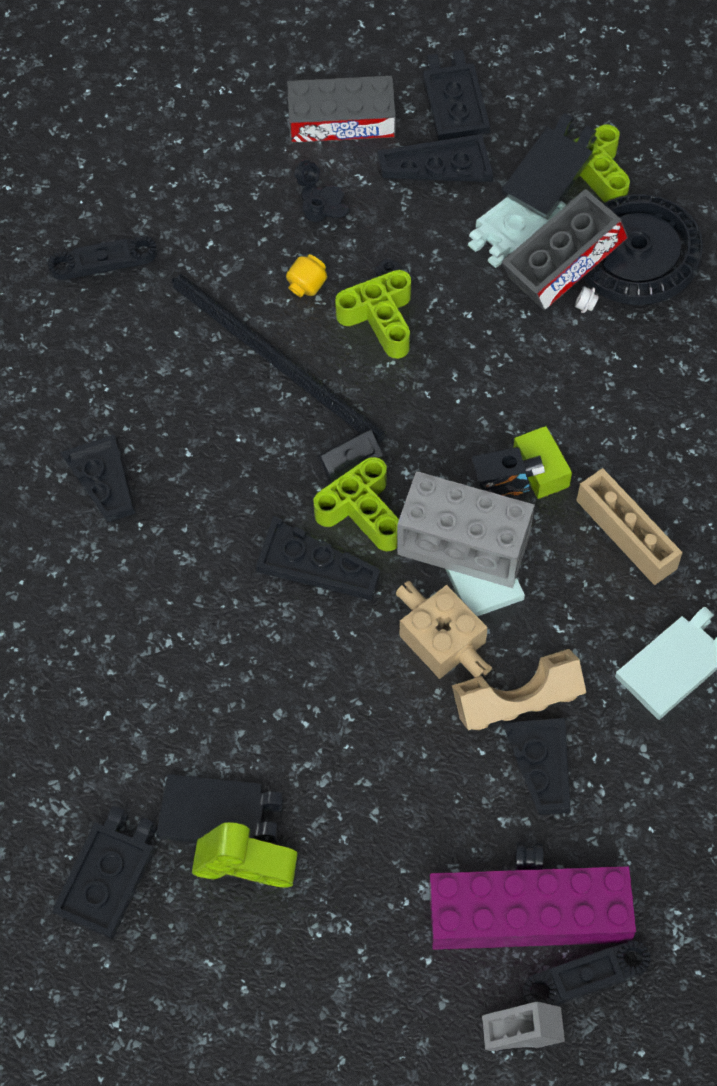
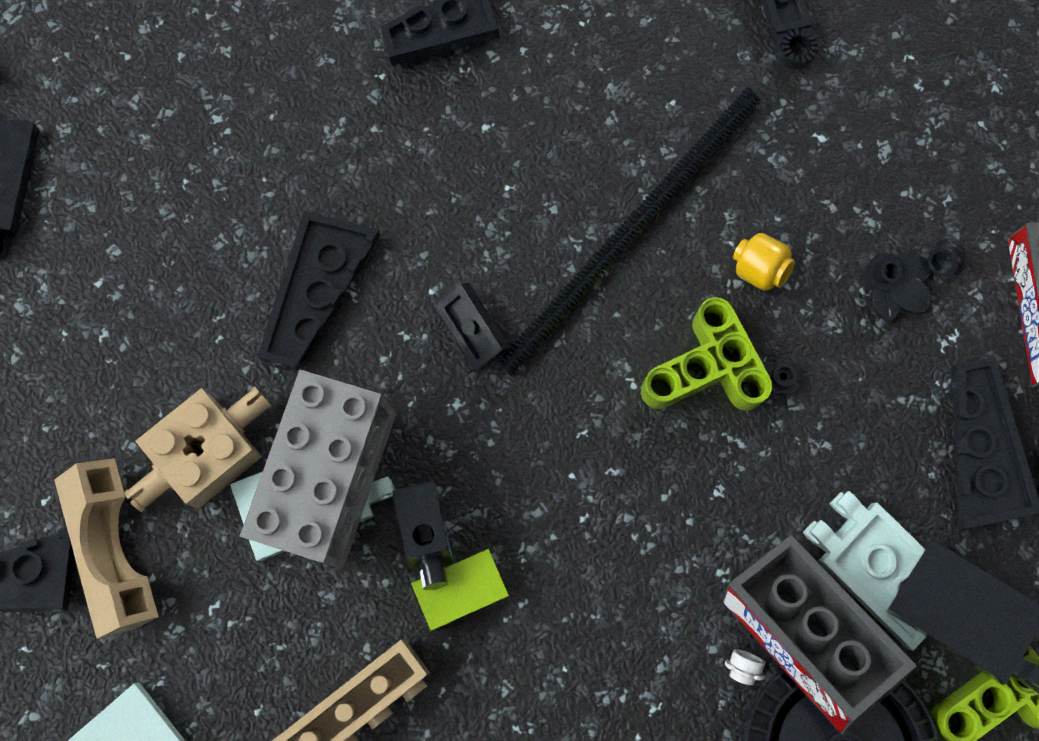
camera: 85 degrees right, 15 degrees up
(356, 503) = (393, 334): lime beam -> none

